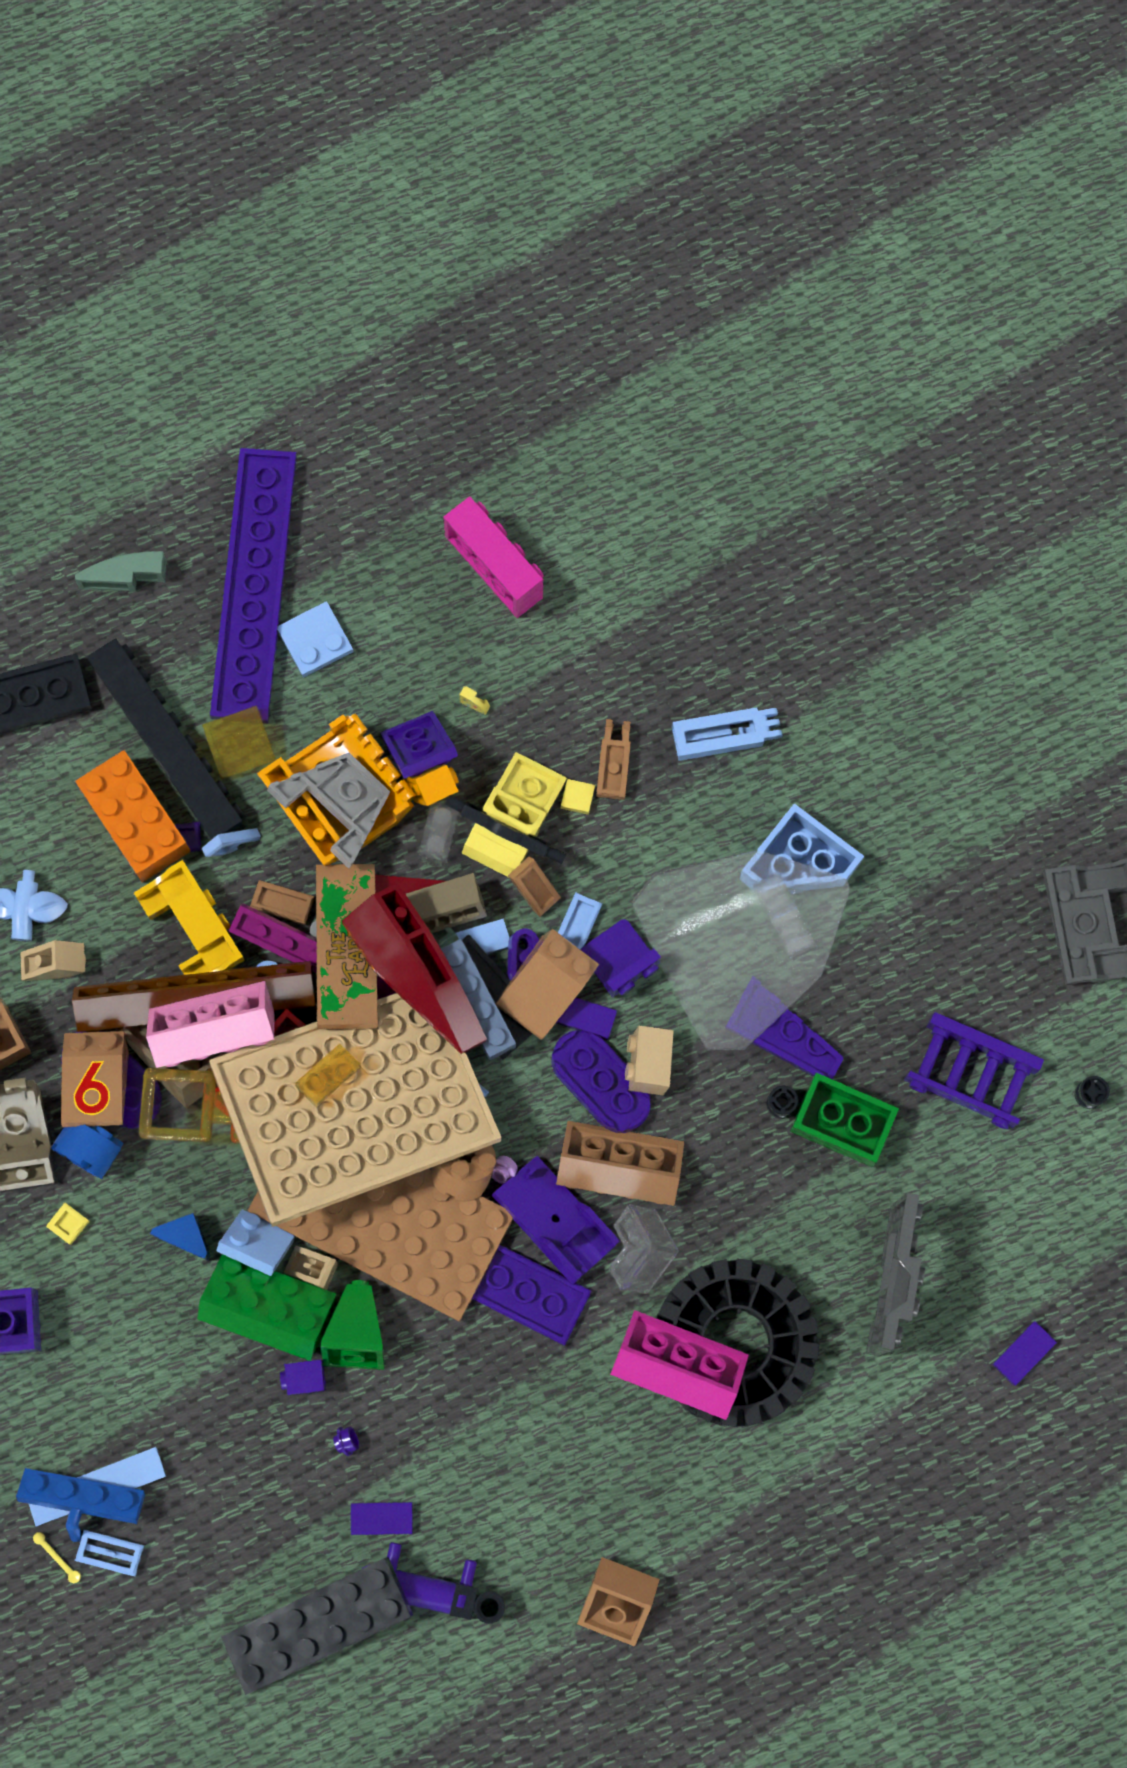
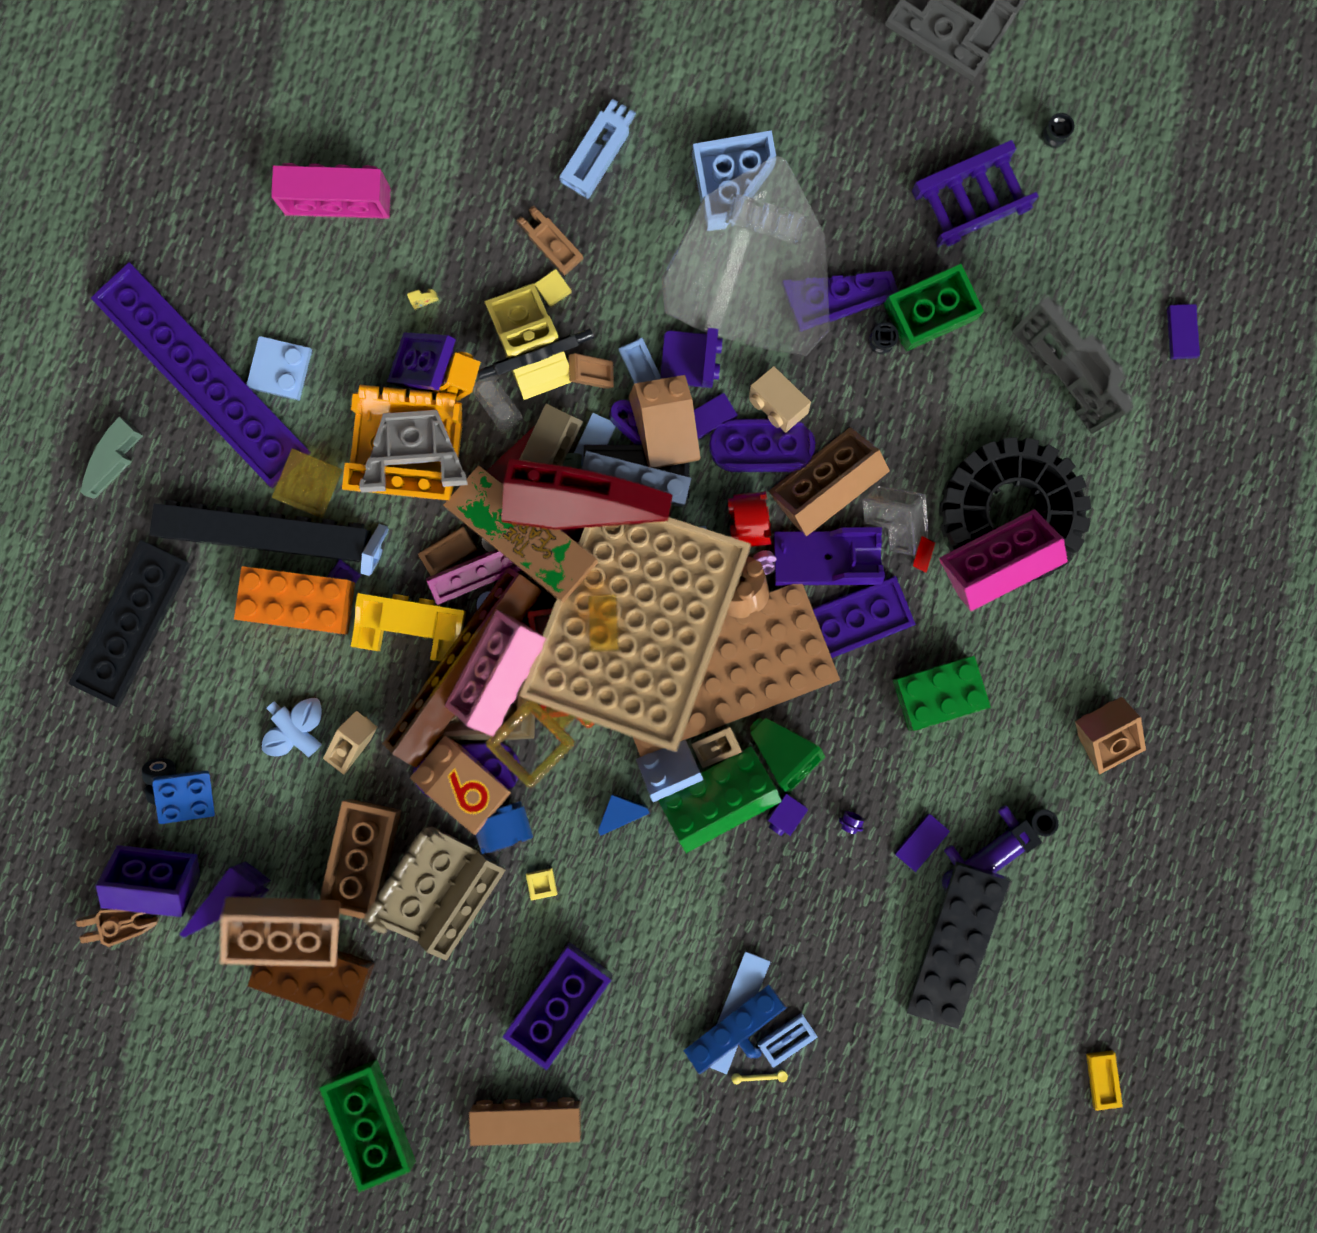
camera: 45 degrees left, 10 degrees up
(523, 1418) = (941, 693): none -> green brick
(527, 1124) = (751, 518): none -> red brick
(630, 1298) = (923, 554): none -> red sticker

